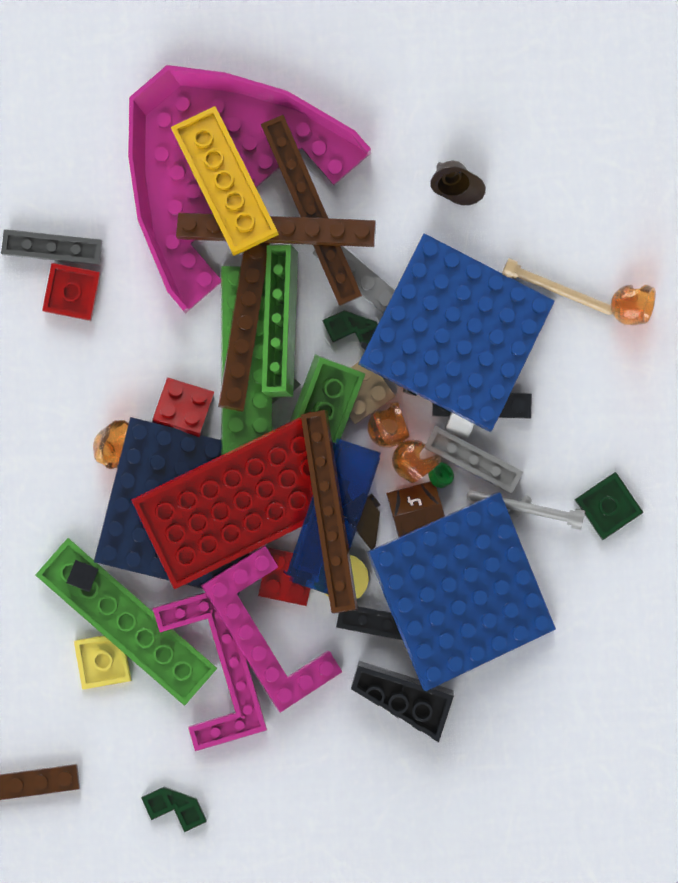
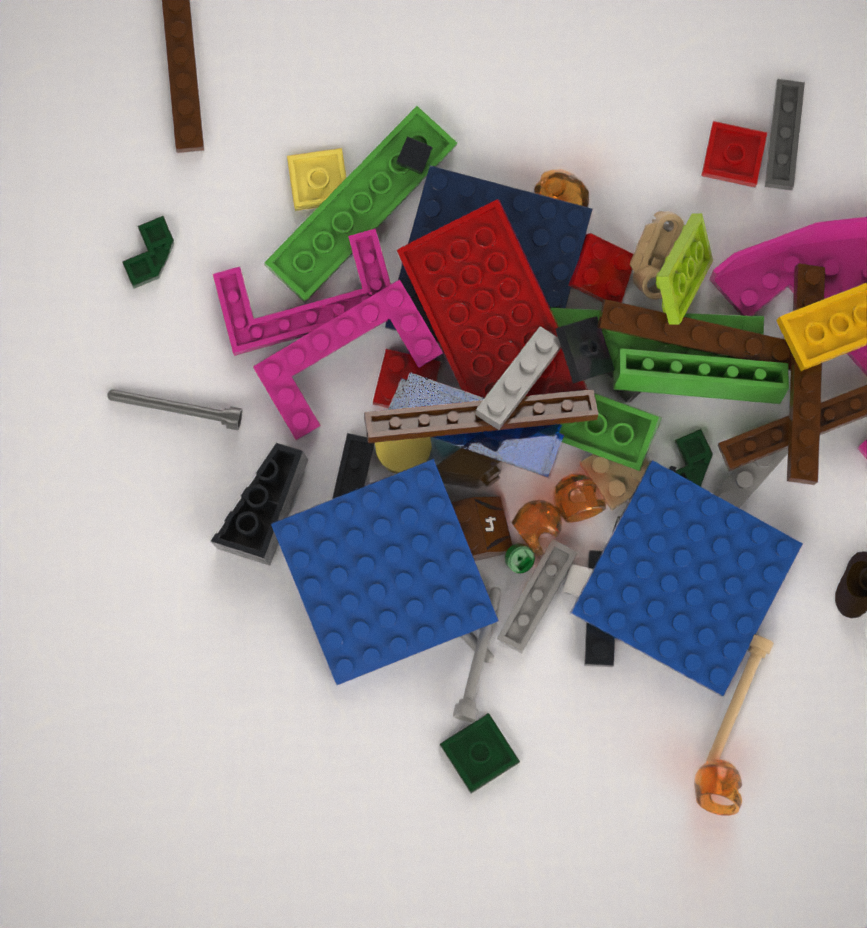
camera: 90 degrees right, 10 degrees down
(169, 358) = (653, 249): none -> tan piece
(187, 335) = (684, 269): none -> lime plate
(263, 422) = (584, 349): none -> black plate
(294, 479) = (519, 378): none -> light grey plate
(323, 731) = (229, 417): none -> dark grey piece

